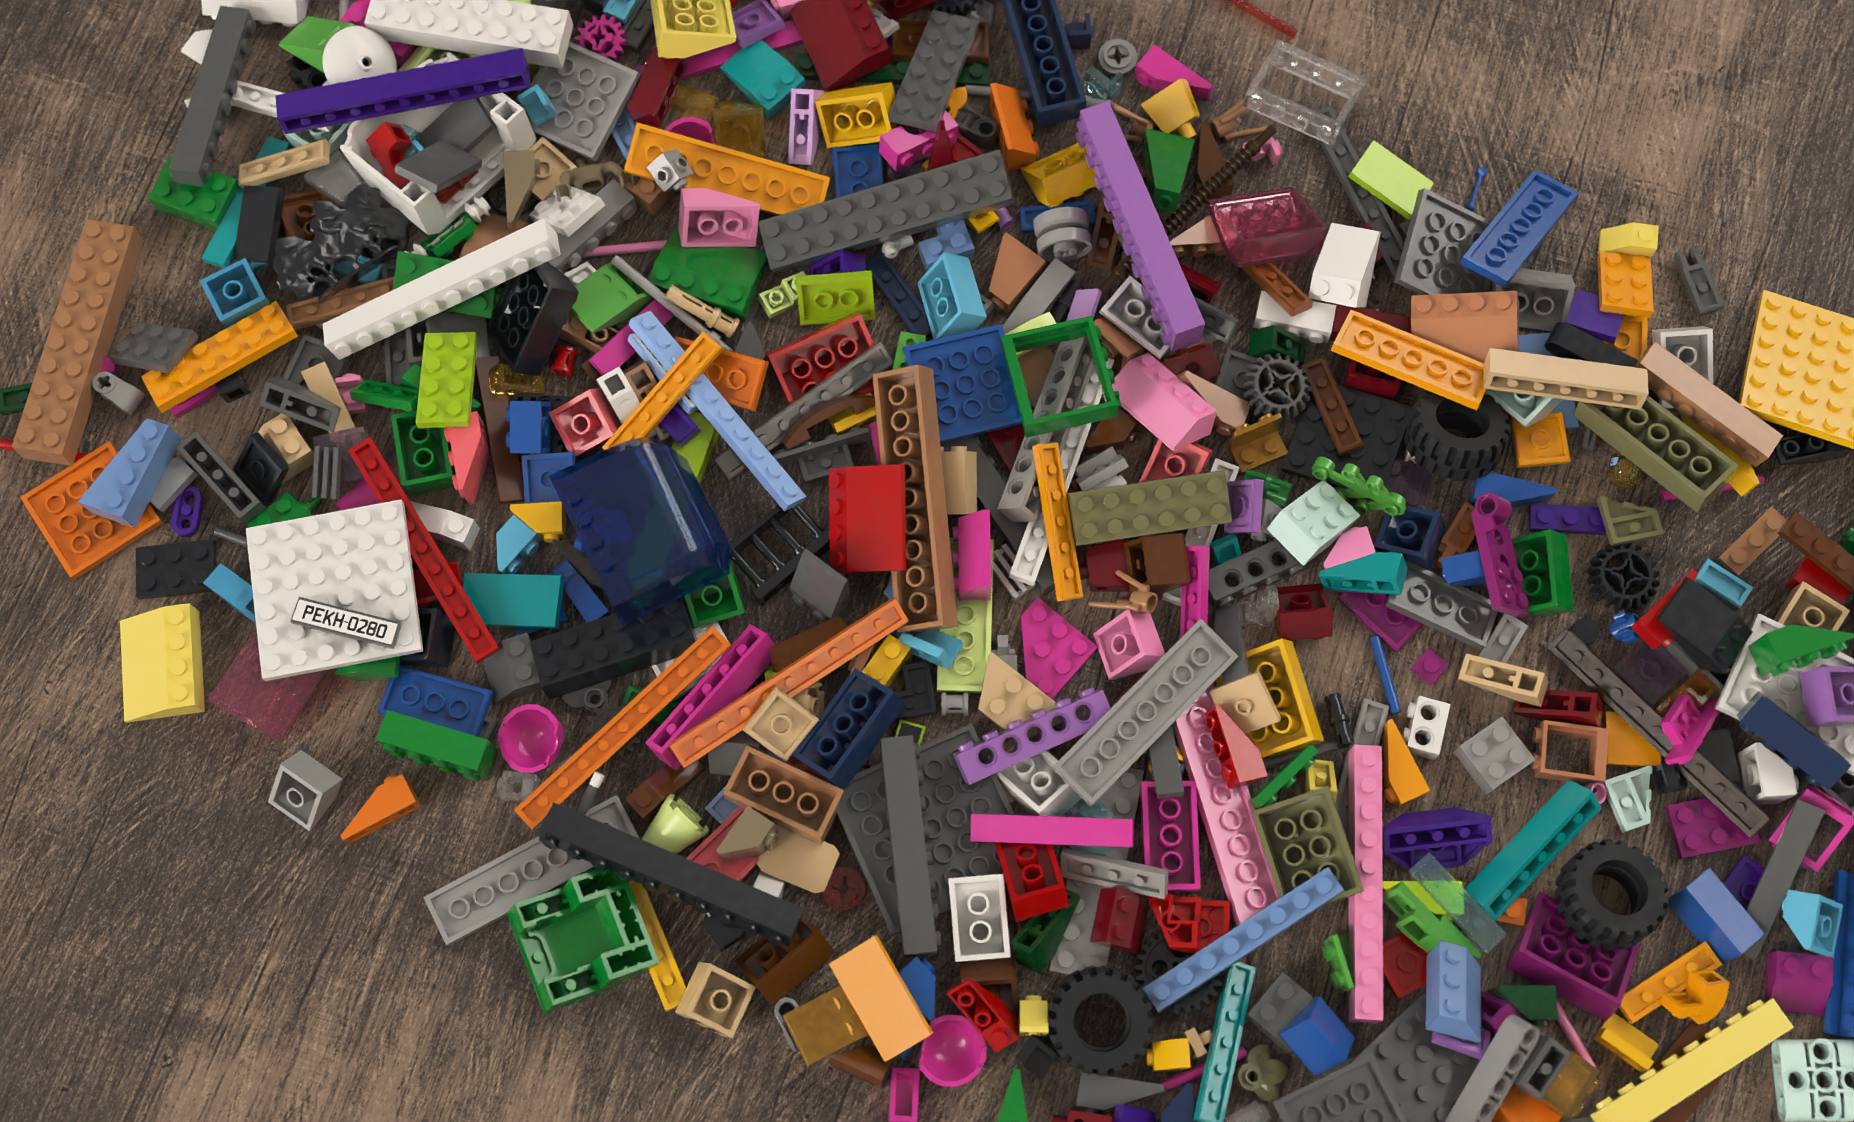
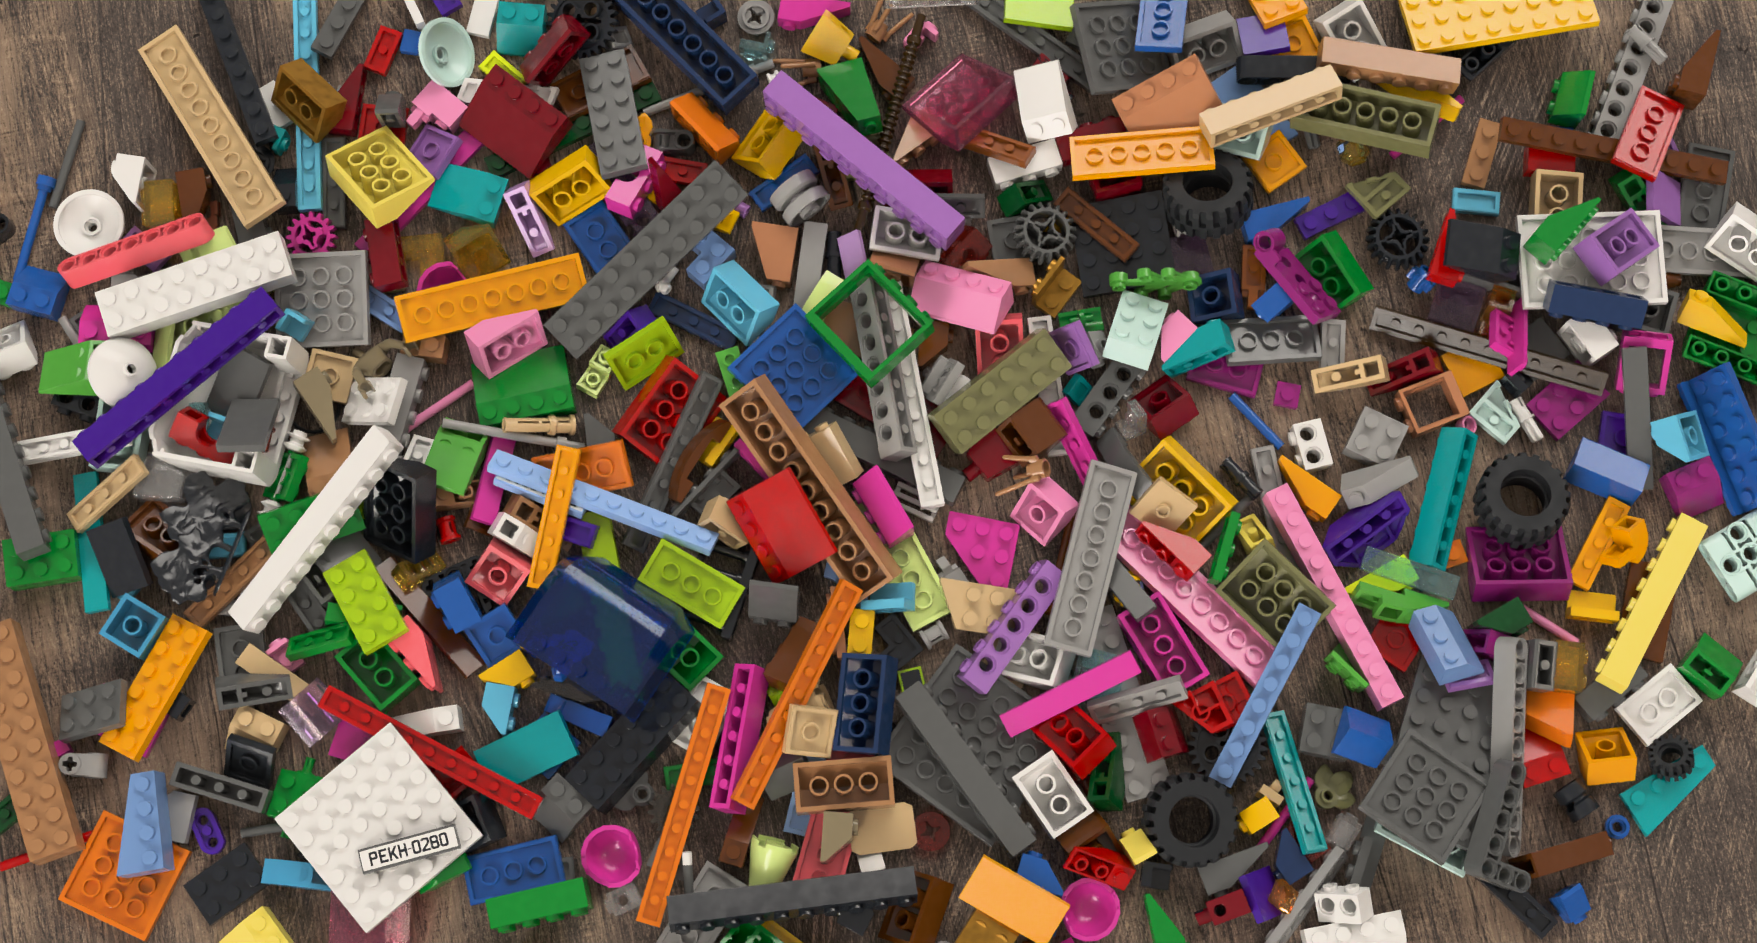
camera: 30 degrees left, 5 degrees up
(322, 472) = (300, 738): dark grey tile -> none
(670, 170) = (448, 323): light grey brick -> none
(753, 527) = (691, 583): none -> lime plate
(815, 485) = (721, 520): none -> tan brick
(1057, 521) = (934, 442): light orange tile -> none
(1473, 795) = (1374, 482): none -> light grey slope
(1585, 630) = (1390, 298): black tile -> none
(1659, 820) = (1526, 419): none -> white axle

